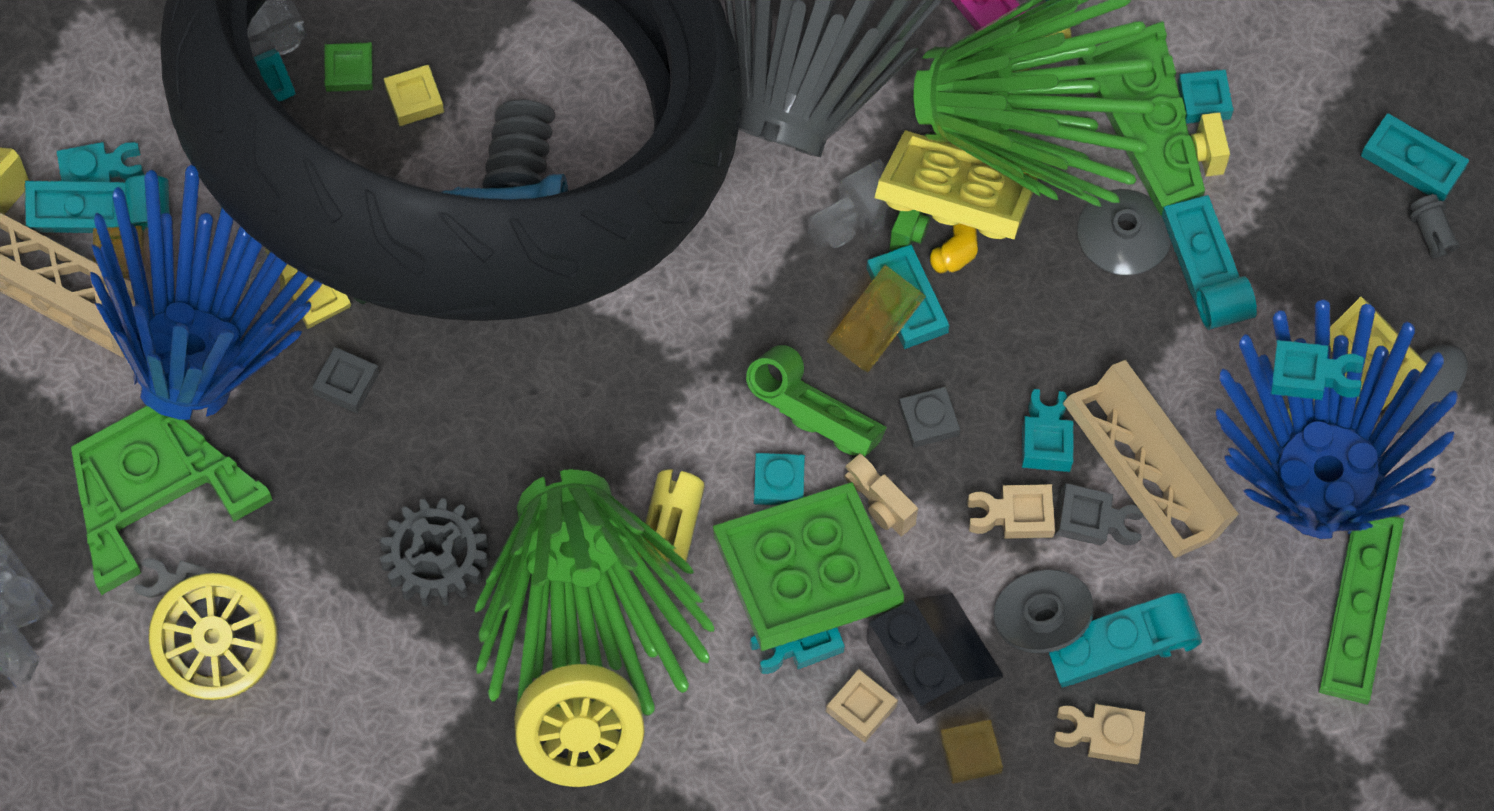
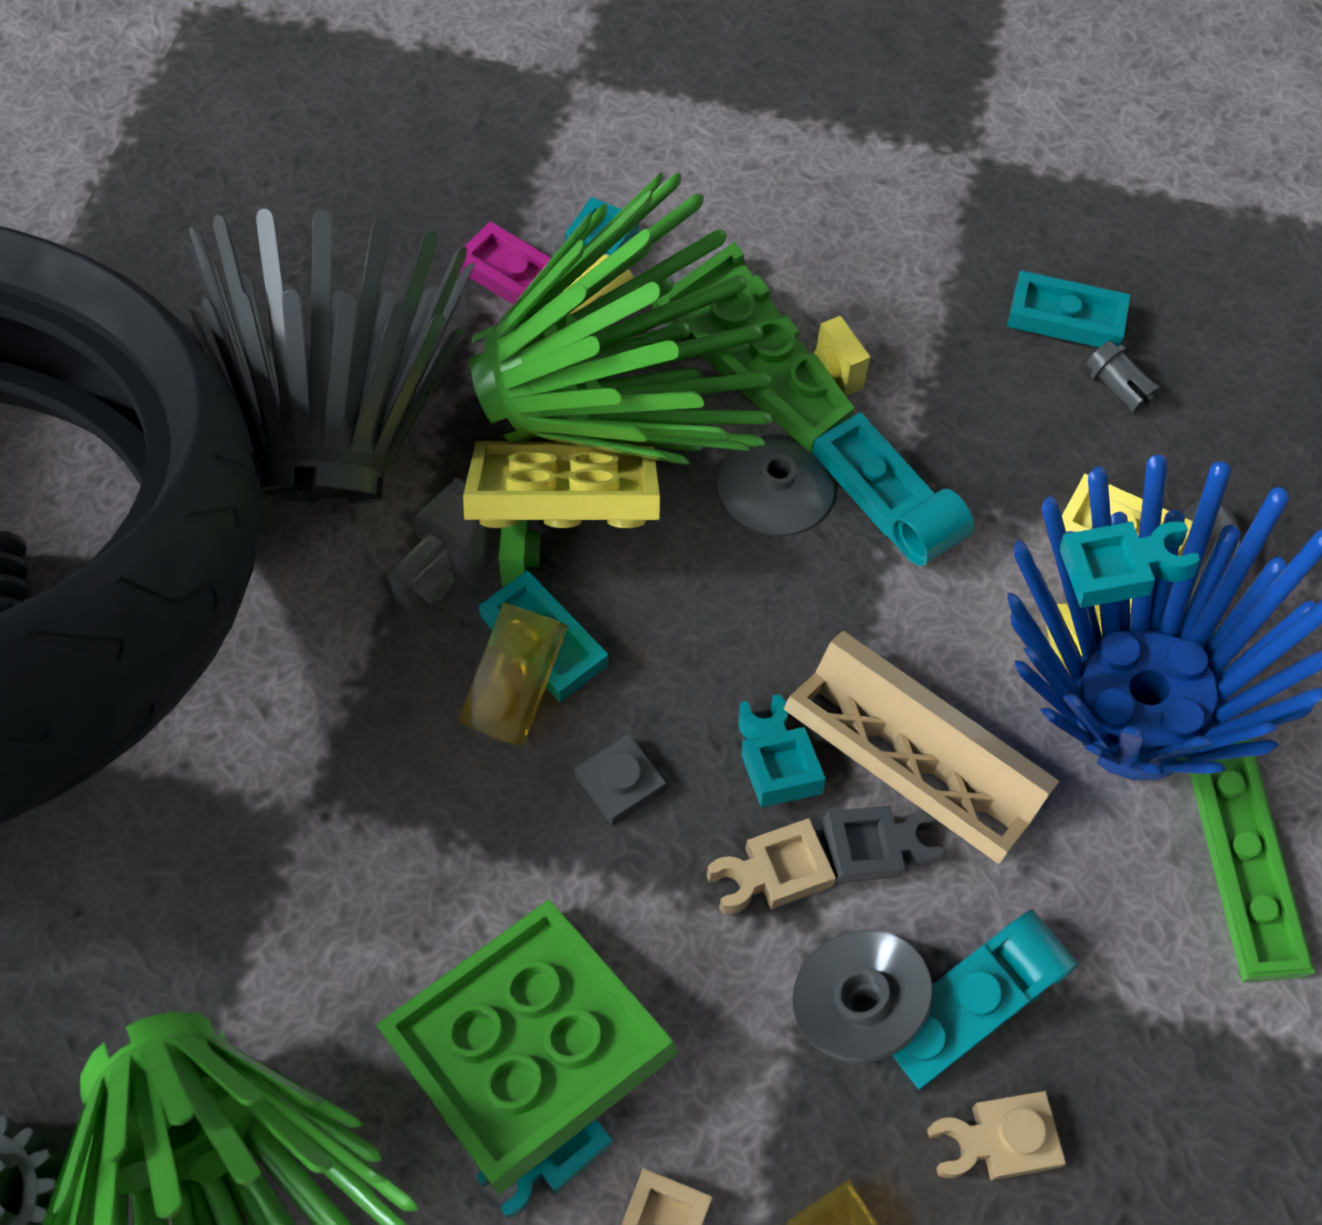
camera: 20 degrees left, 5 degrees down
(675, 510) = (316, 1027): light yellow arm -> none
(778, 478) = (448, 925): teal plate -> none
(809, 407) = (461, 815): bright green plate -> none
(887, 502) = (606, 913): tan plate -> none
(931, 654) = (734, 1109): black slope -> none
(957, 251) = (586, 562): yellow arm -> none
(1205, 94) = (810, 304): teal plate -> none

